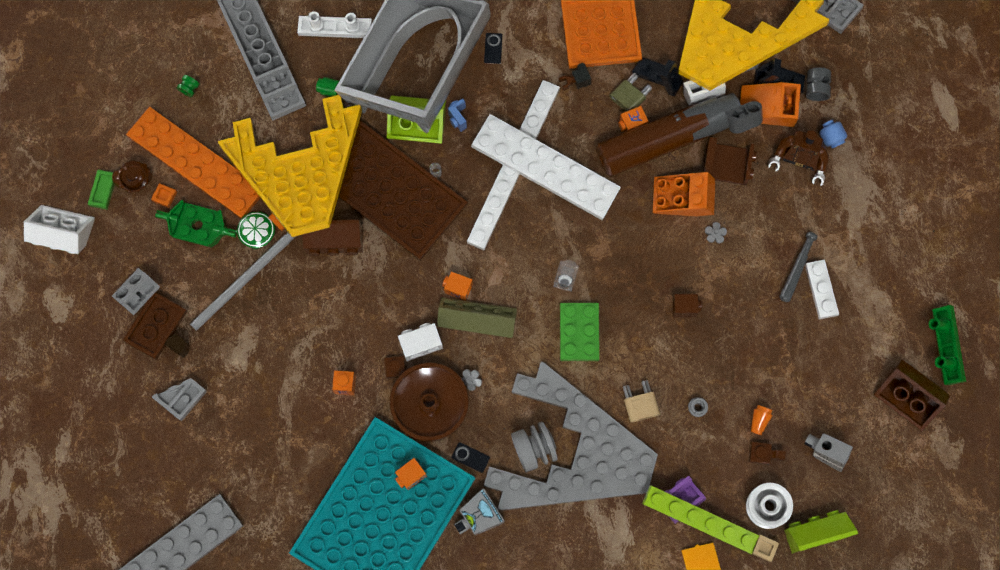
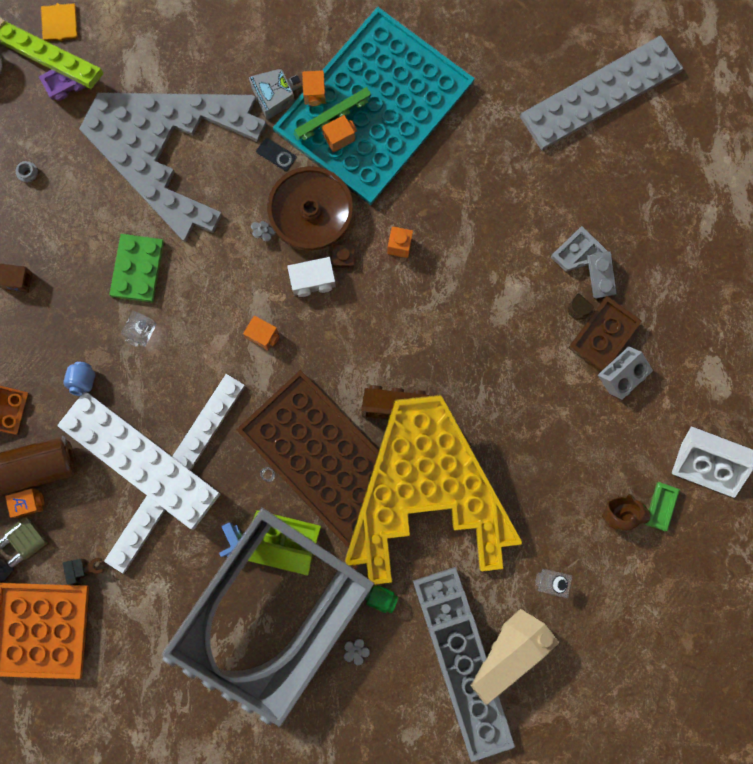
camera: 175 degrees left, 5 degrees up
(159, 377) = (601, 274): none -> light grey plate
(164, 195) = (589, 489): orange tile -> none
(184, 215) = (570, 451): green plate -> none
(187, 86) = (556, 624): green wheel -> none
(190, 116) = (553, 583): none -> clear brick
(194, 162) = (555, 528): orange plate -> none
(215, 60) = (515, 651): none -> tan wedge
(241, 281) = (507, 371): light grey piece -> none
(256, 230) = (484, 431): dish -> none
(333, 26) = (367, 681): white plate -> none
(345, 48) = (356, 651): none -> light grey plant
(419, 492) = (343, 108): none -> bright green plate
(439, 516) = (313, 87): none -> orange brick
(476, 317) = (245, 298): olive panel -> none
(493, 48) = (175, 619): black sticker -> none
(534, 446) = (204, 145): light grey wheel -> none
(609, 226) = (79, 378): none -> medium blue head
(641, 406) = (85, 180): tan piece -> none

